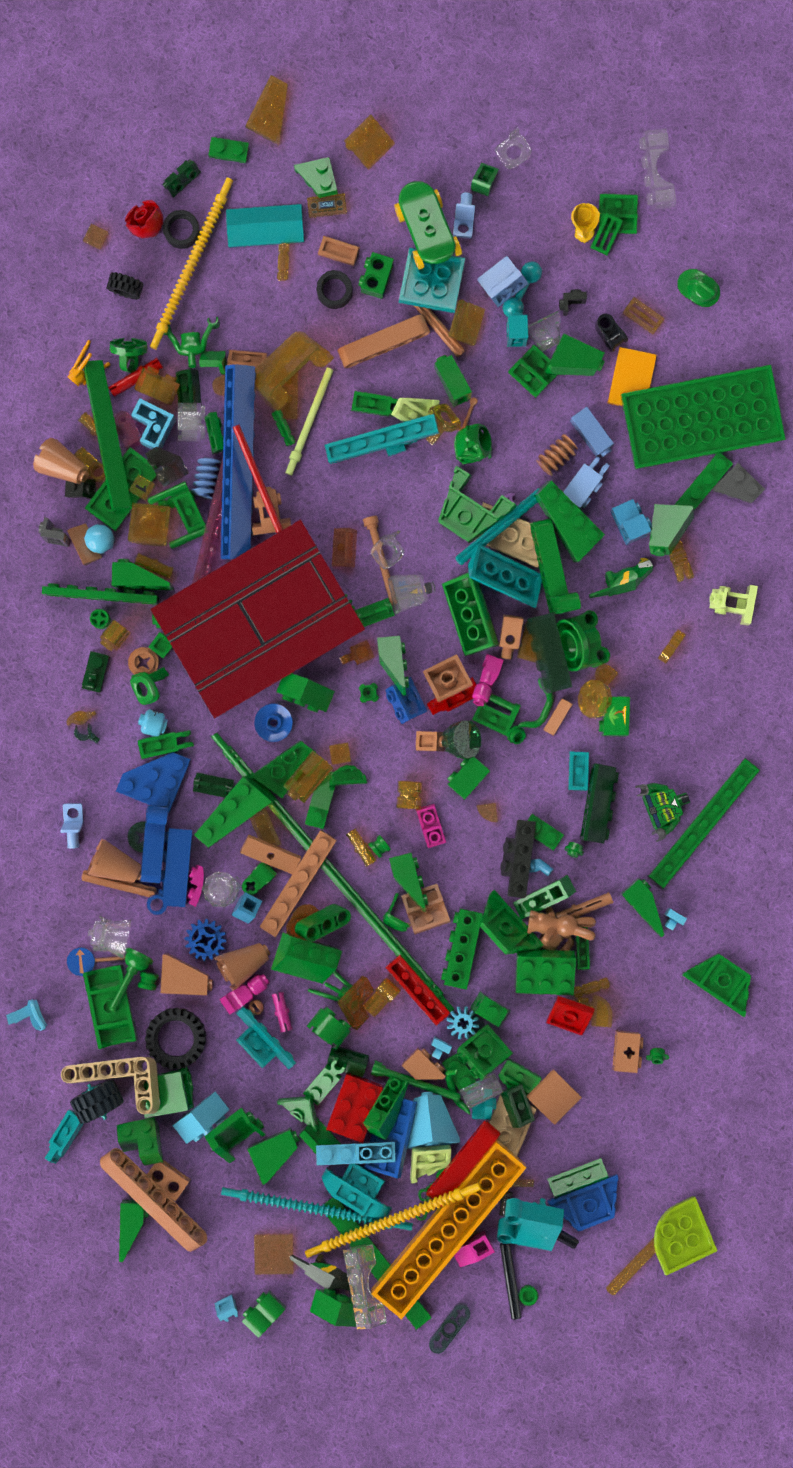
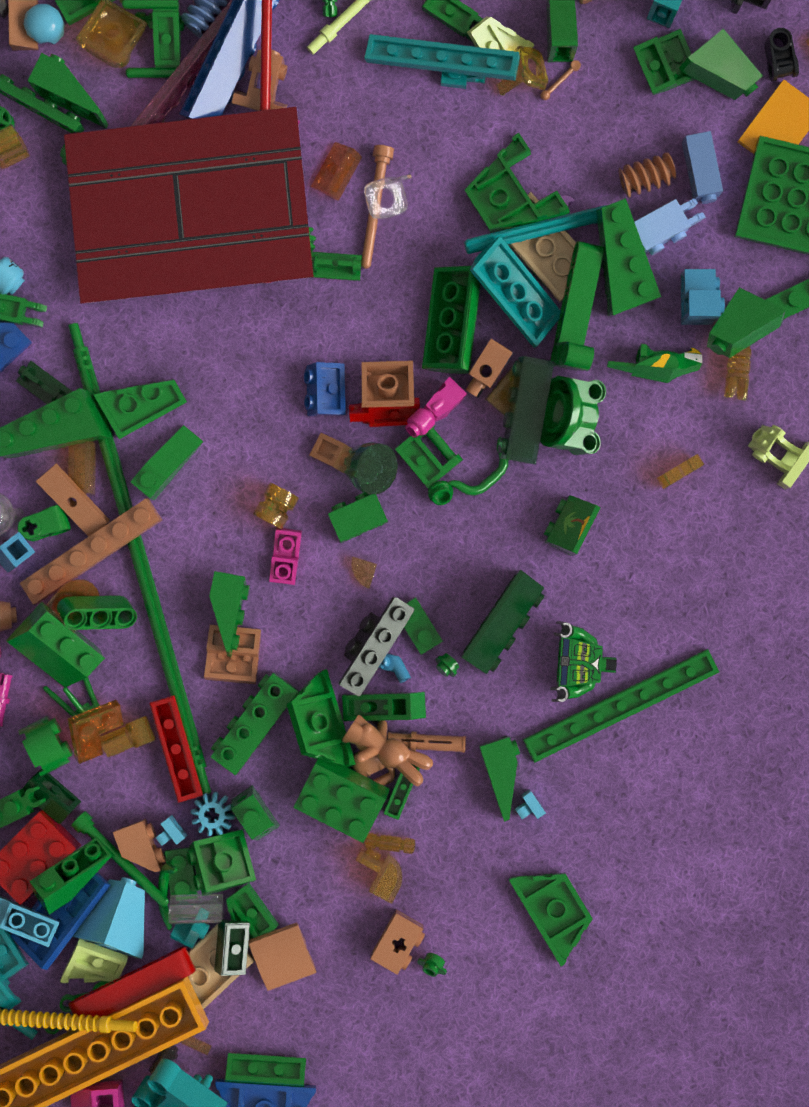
camera: 20 degrees right, 0 degrees up
(143, 652) = (18, 192): nougat gear -> none
(149, 681) = (22, 222): green piece -> none
(154, 565) = (95, 87): clear yellow pin -> none
(161, 645) = (57, 187): green plate -> none
(273, 712) = (151, 329): blue dish -> none
(305, 692) = (207, 321): green brick -> none
(307, 777) = (161, 427): clear yellow brick -> none
(340, 753) = (215, 417): clear yellow plate -> none
(347, 776) = (211, 448): green plate -> none
(360, 653) = (297, 307): clear orange plate -> none
(361, 847) = (188, 543): clear yellow pin -> none
(373, 695) = (280, 353): green plate -> none
(379, 846) = (210, 552): green wheel -> none
(391, 660) = (330, 329): slope -> none
(394, 922) = (183, 650): green piece -> none
(409, 591) = (390, 258): clear torso -> none
(473, 444) = (545, 119): green piece -> none
(546, 331) = (703, 18): clear wing -> none
(557, 716) = (501, 494): nougat piece -> none
(570, 1015) = (348, 866): red tile -> none
(578, 771) = (496, 571): teal plate -> none
(594, 698) = (556, 492): clear yellow plate -> none
(605, 673) = (583, 469): clear yellow tile -> none

